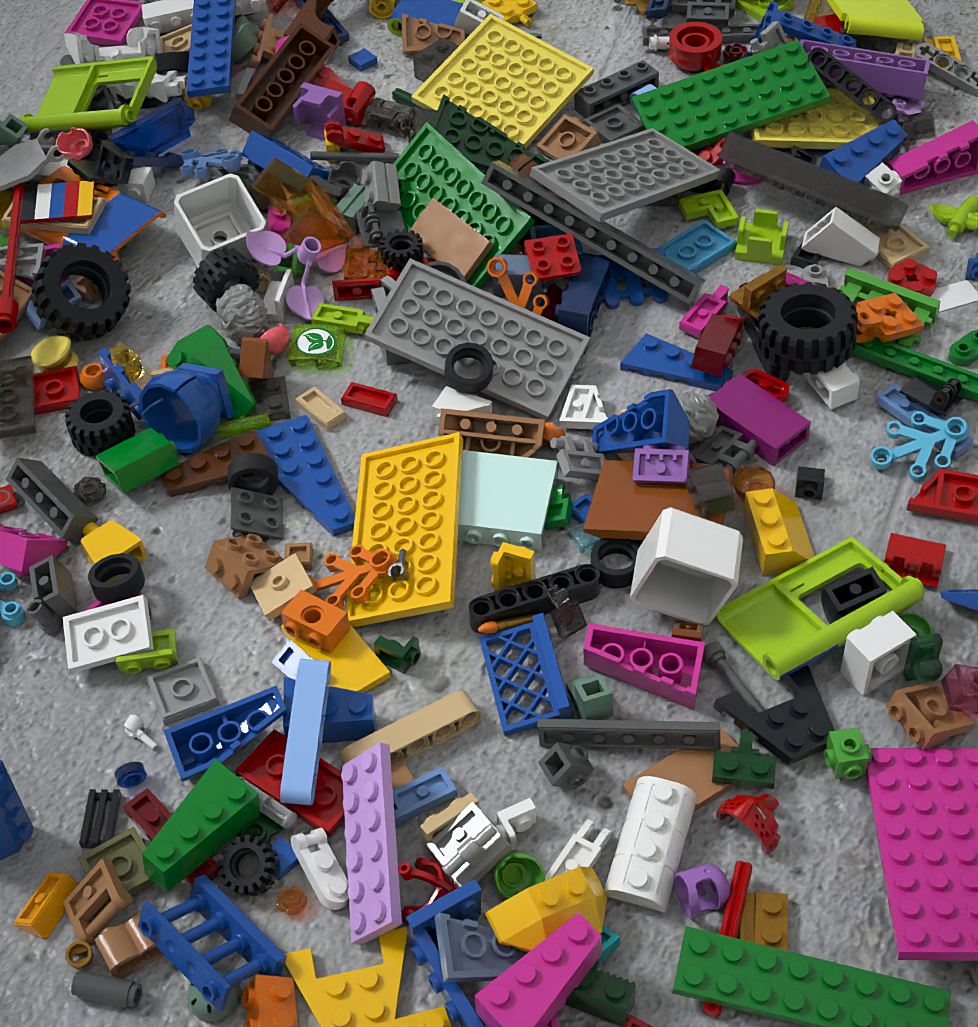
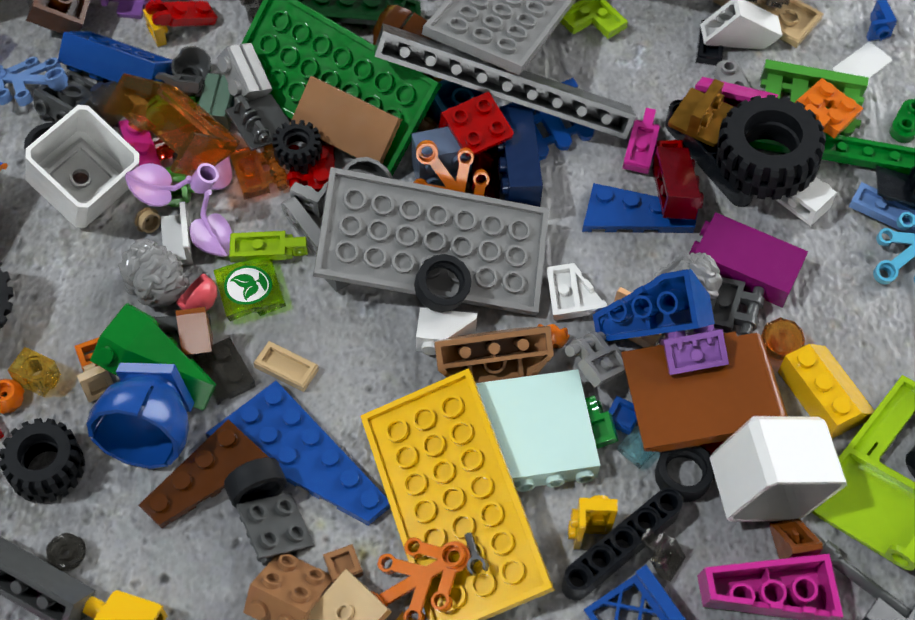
camera: 25 degrees left, 10 degrees up
(118, 382) = (46, 402): blue wing -> none
(138, 459) = (110, 498): green brick -> none
(221, 272) = (112, 232): black tyre -> none
(244, 424) = (212, 412): clear neon green pin -> none
(353, 156) = (187, 34): dark grey bar -> none
(354, 288) = (262, 205): red slope -> none
(369, 399) = (334, 340): red tile -> none
(492, 627) = (609, 582): pearl gold piece -> none
(699, 246) = (598, 64): dark azure tile -> none
(710, 490) = (763, 370): clear smoke brick -> none
(763, 239) = (660, 42): lime panel -> none
(769, 383) = (741, 213): red plate -> none
(810, 483) = (829, 319): black bracket -> none
(922, 277) = (817, 44): red plate -> none

